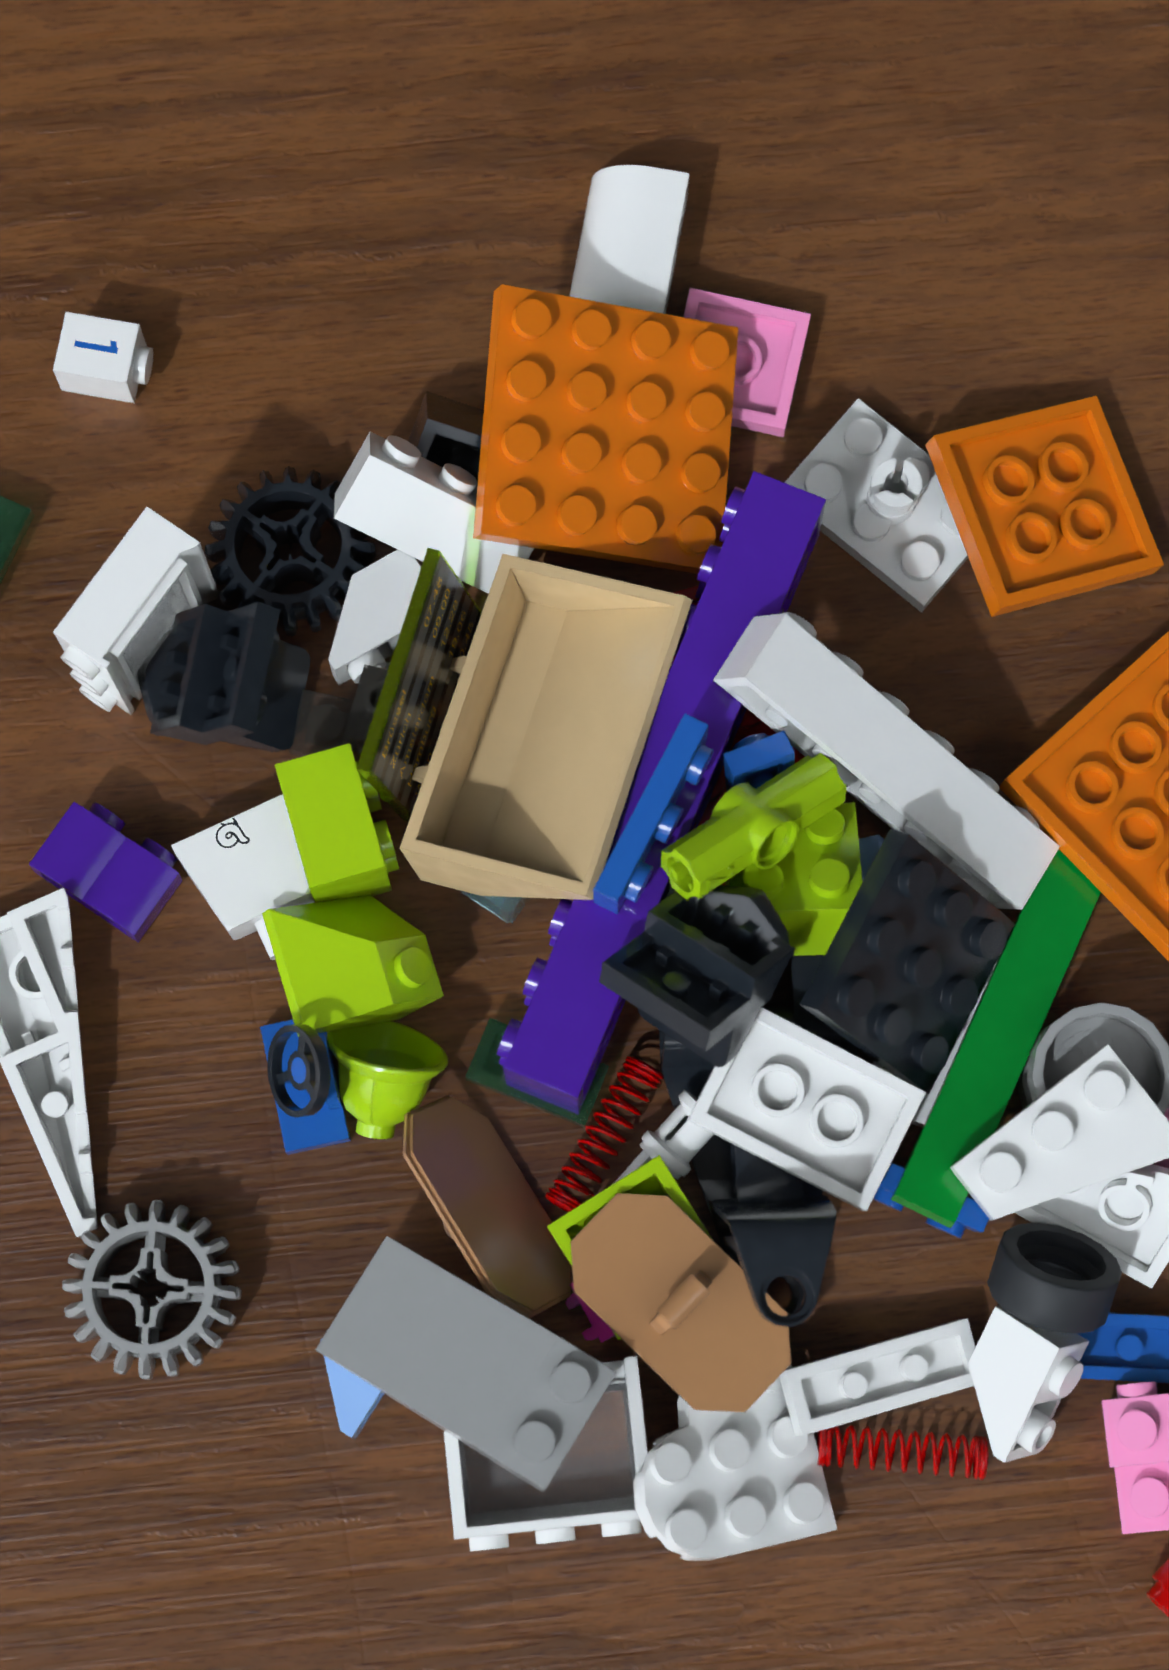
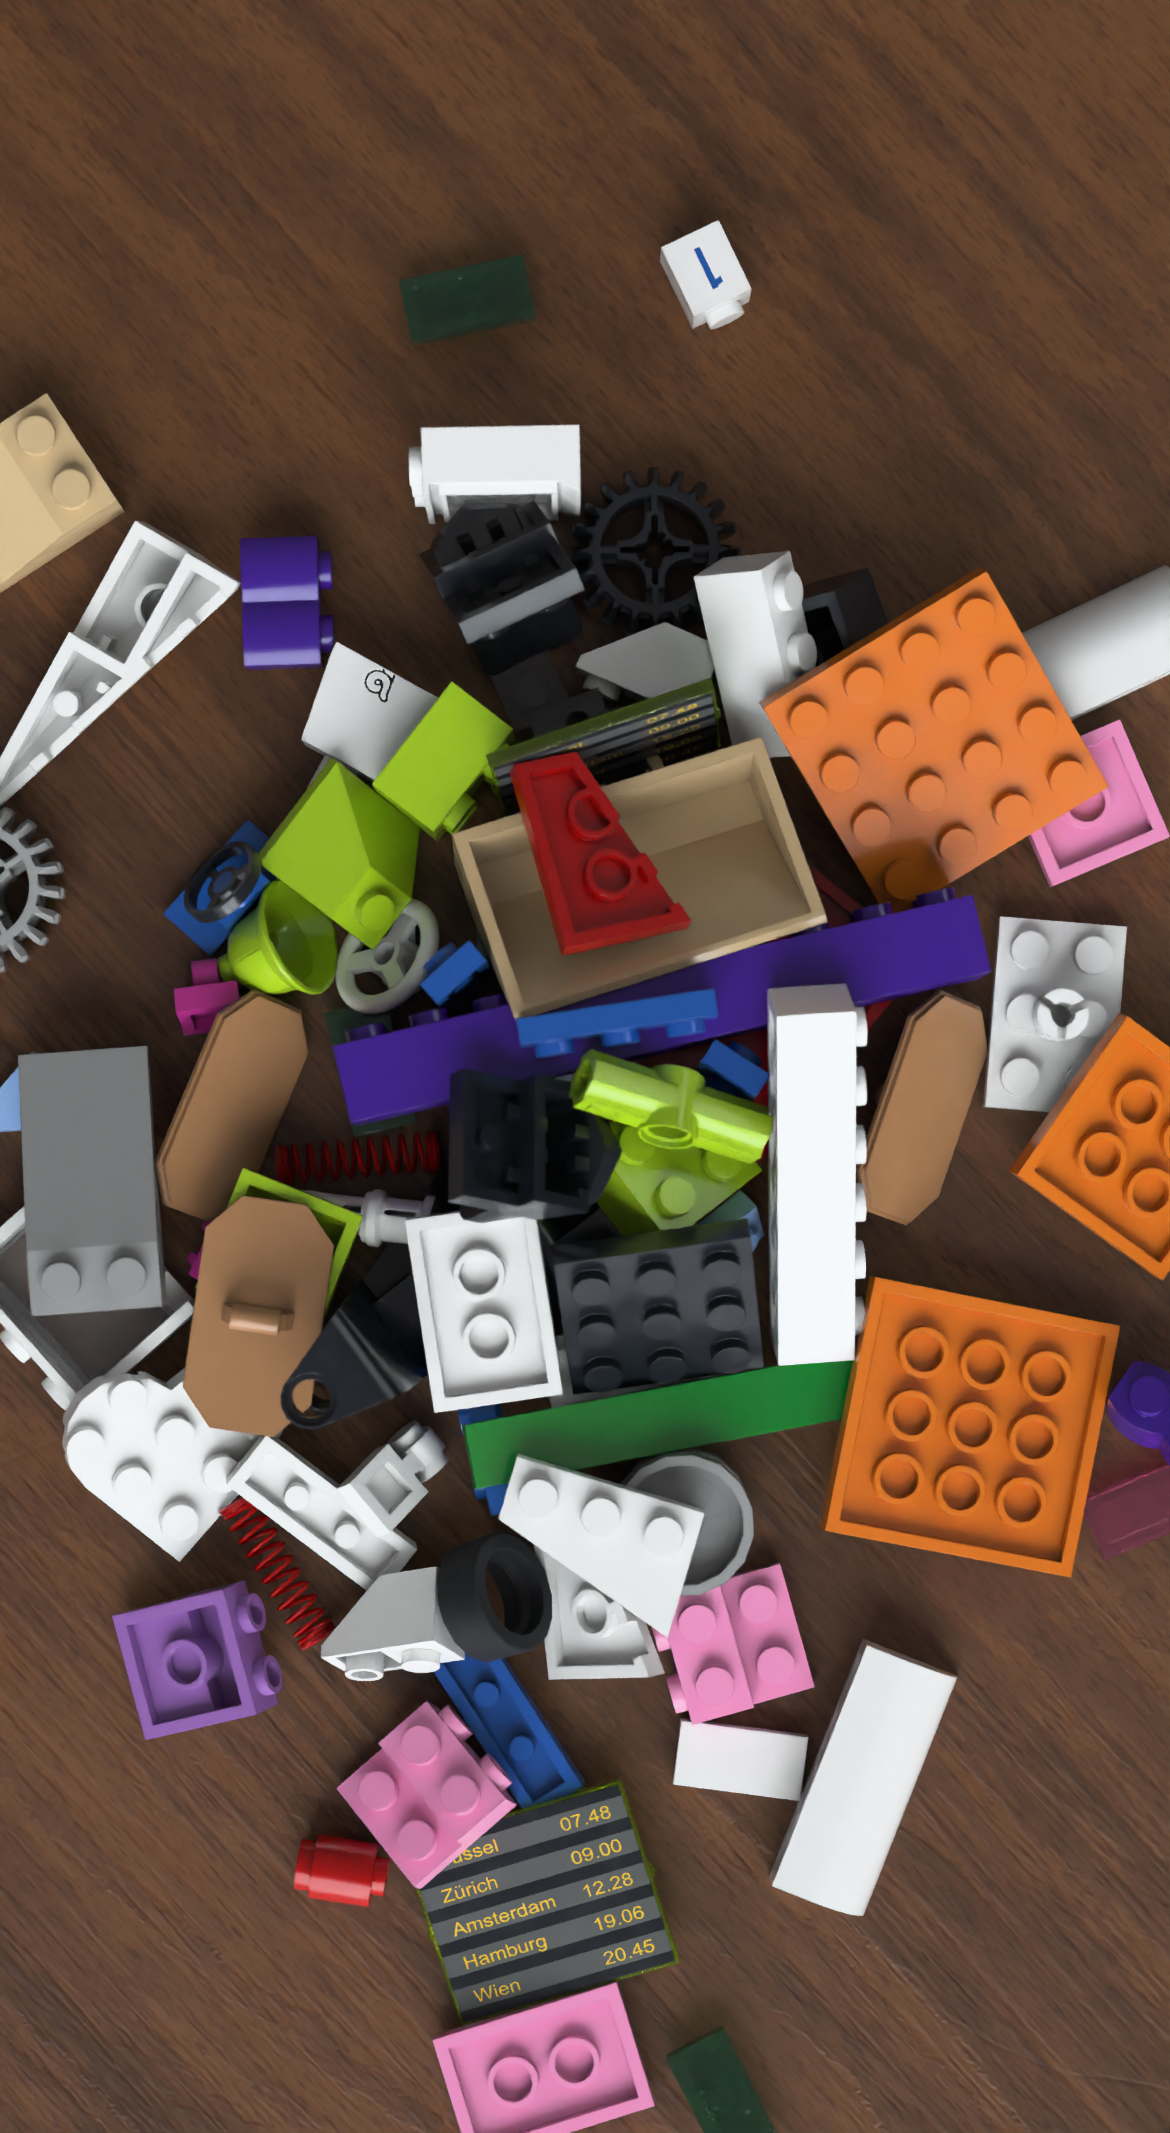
camera: 55 degrees right, 10 degrees up
(383, 1167) = (200, 1003): none -> dark pink tile
(466, 988) = (393, 959): none -> white piece
(506, 753) = (586, 862): none -> red wing
(513, 934) = (455, 974): none -> blue plate
(890, 646) = (922, 1107): none -> medium nougat shield
(892, 1296) = (392, 1477): none -> white plate
(932, 1572) = (198, 1660): none -> medium lavender plate

